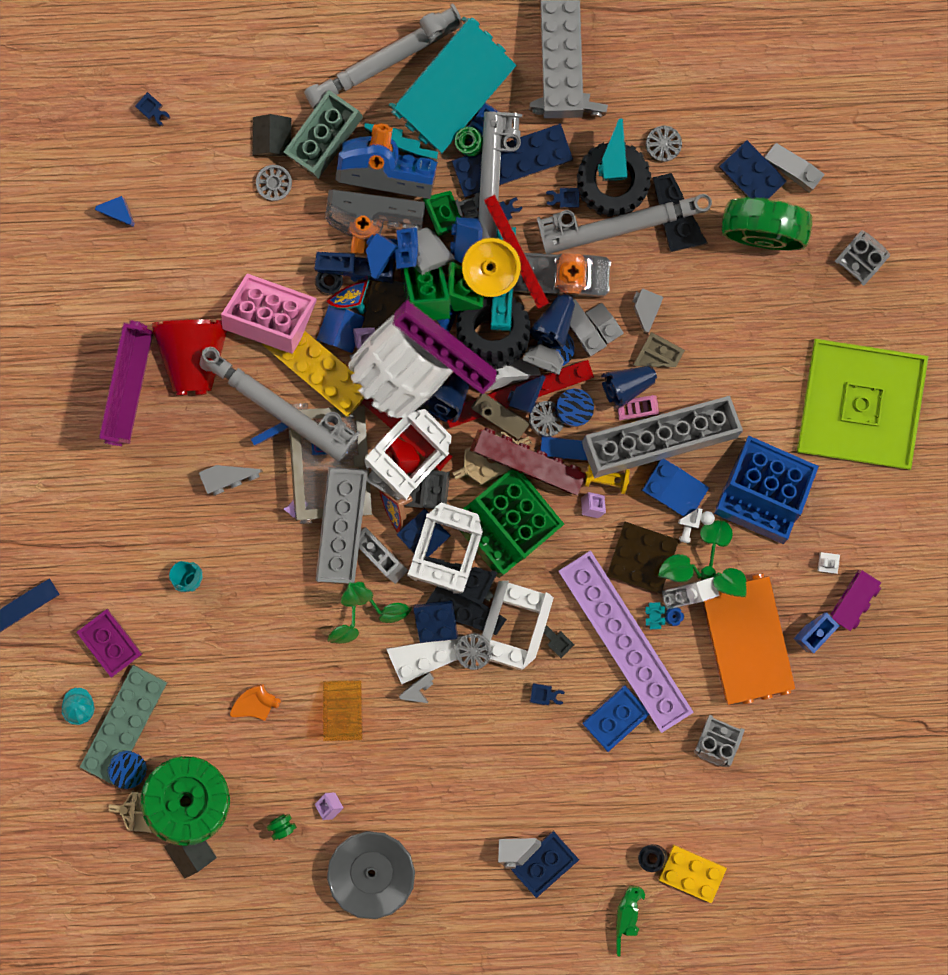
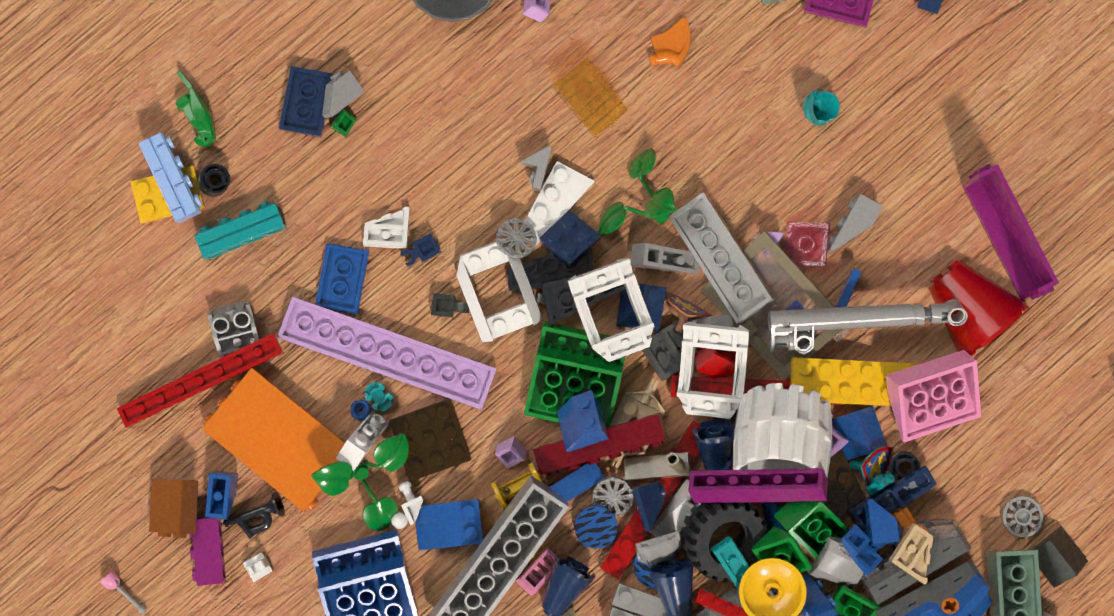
camera: 135 degrees right, 5 degrees down
(271, 487) = (808, 243): none -> clear pink slope
(355, 283) = (880, 482): none -> teal piece
(372, 217) = (914, 553): none -> tan wing
(529, 487) = (582, 421): none -> blue slope
(530, 828) = (343, 123): none -> green slope
(558, 726) = (388, 231): none -> white wing
(661, 807) = (239, 231): none -> teal brick
(682, 883) = (170, 178): none -> light blue brick
(770, 723) = (200, 380): none -> red plate
(785, 596) = (274, 505): none -> black piece
(856, 649) = (173, 507): none -> dark orange brick
(936, 630) = (112, 582): none -> hinge

